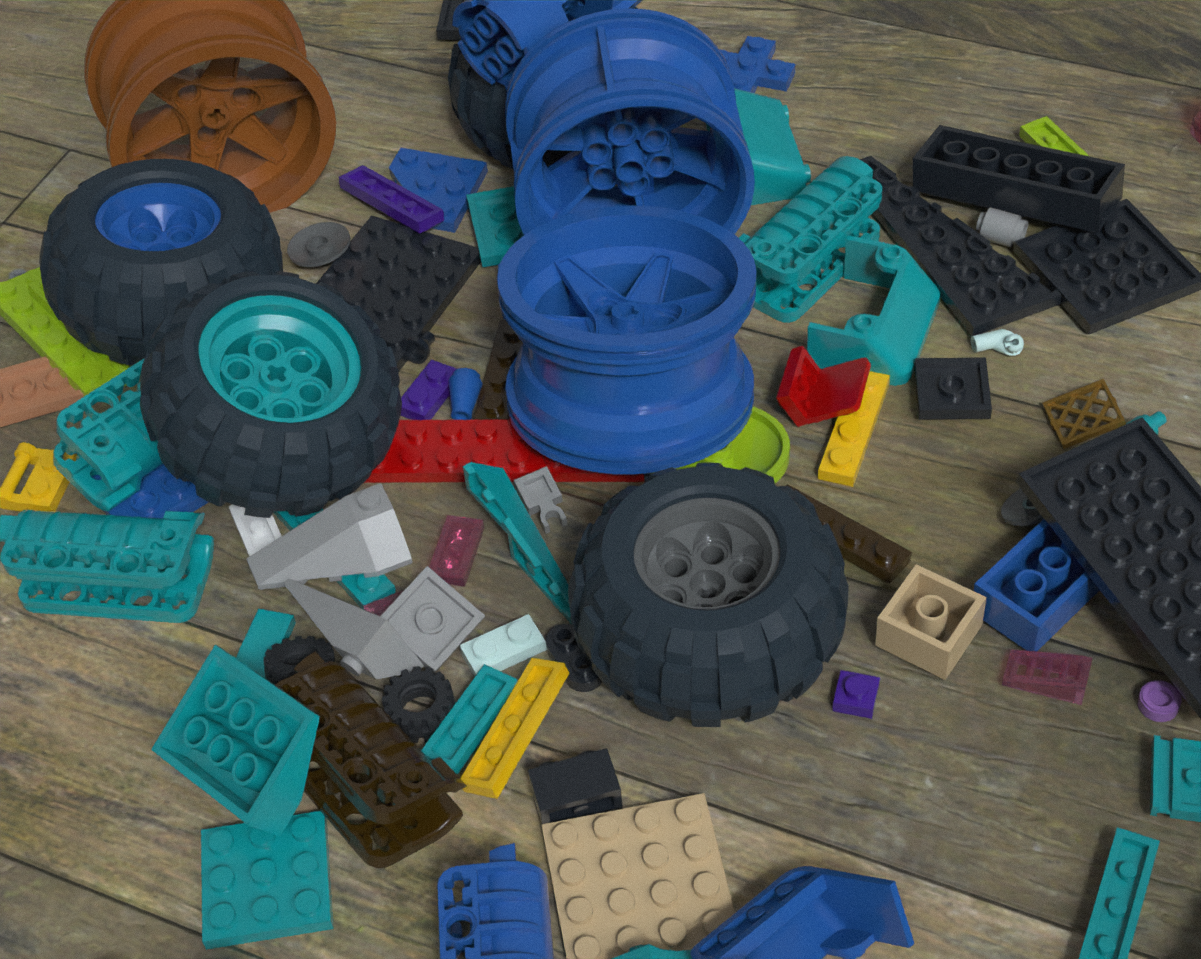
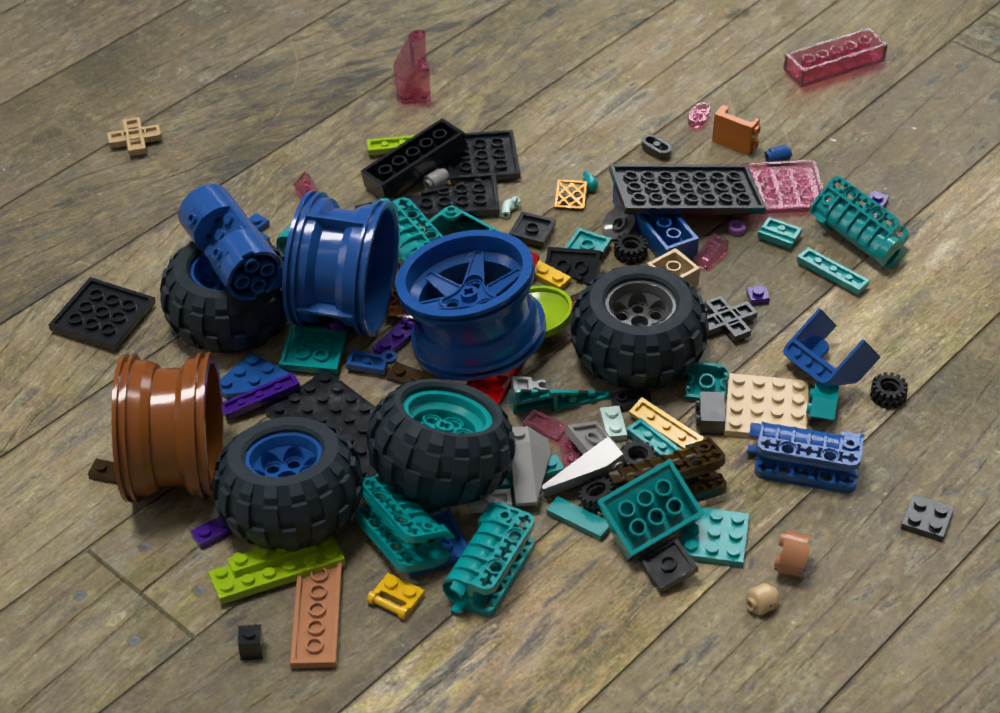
camera: 75 degrees left, 5 degrees down
(162, 819) = (668, 564): none -> black plate
(661, 762) = (706, 378): none -> teal slope
(862, 751) = (729, 318): none -> plate
(889, 91) = (304, 184): none -> clear pink plate
(890, 473) = (576, 263): none -> black wing
(951, 477) = (589, 240): none -> teal plate
(967, 789) = (757, 295): none -> plate
(981, 525) = (627, 241): none -> black tyre

